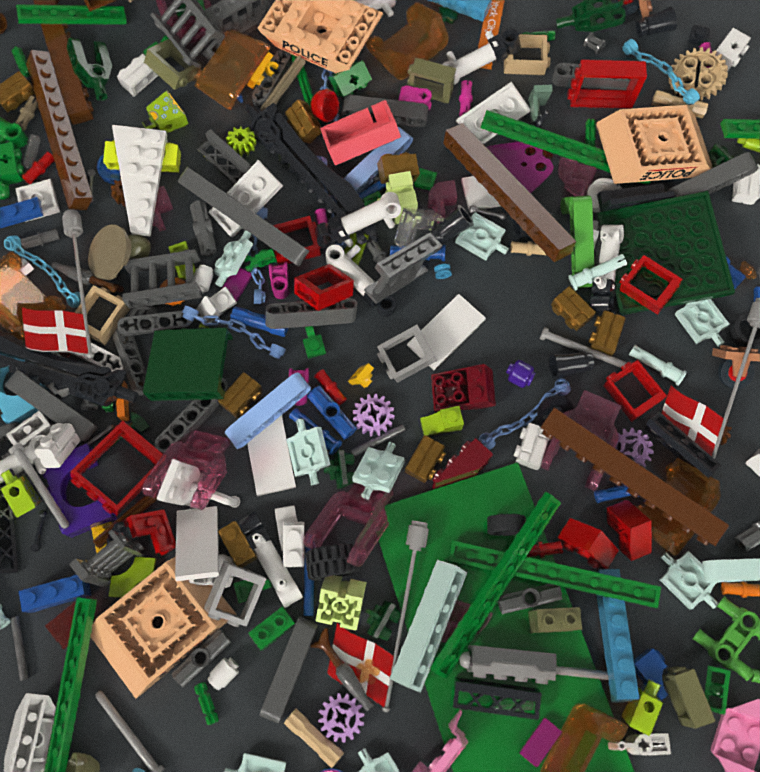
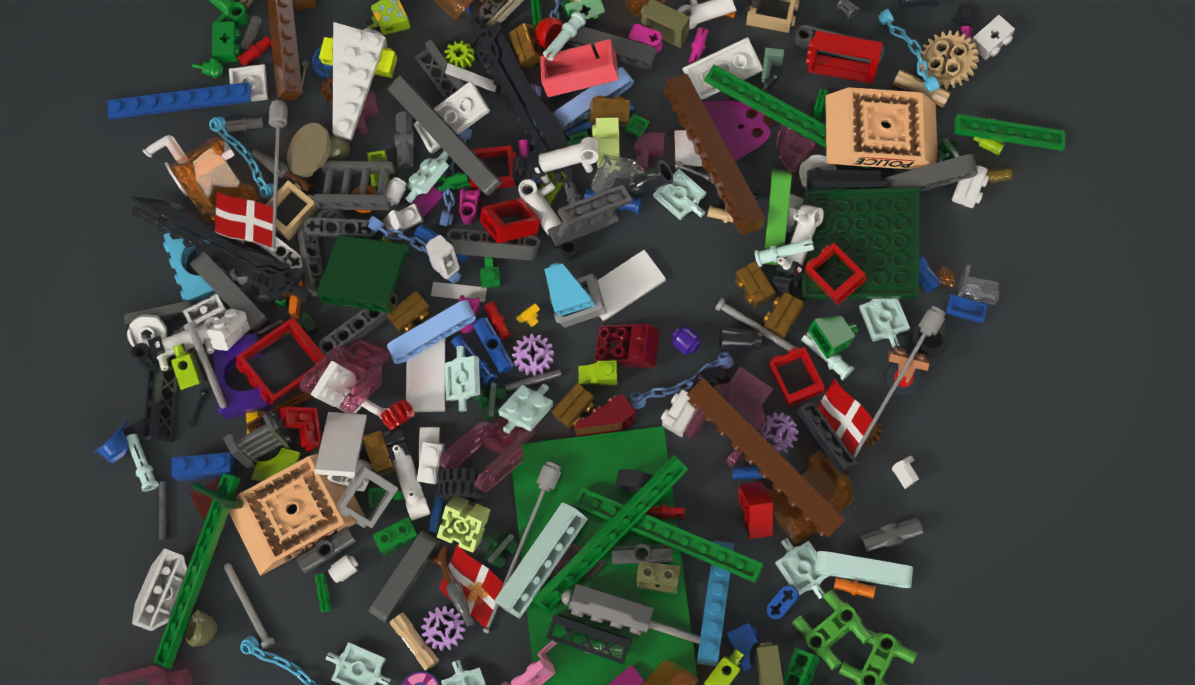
camera: 20 degrees right, 0 degrees up
(86, 630) = (231, 503): none -> dark green piece
(249, 500) = (397, 414): none -> red gear
(250, 157) = (469, 76): none -> white sticker
(265, 333) = (442, 256): none -> white brick
(282, 365) = (454, 291): none -> white sticker
(342, 100) = (568, 30): none -> light aqua pin
(396, 345) = (566, 291): none -> medium azure slope
(442, 271) = (633, 224): dark azure bush -> none
(589, 543) = (711, 515): red brick -> none
(659, 343) = (832, 334): none -> green torso
(674, 616) = (786, 605): none -> blue beam

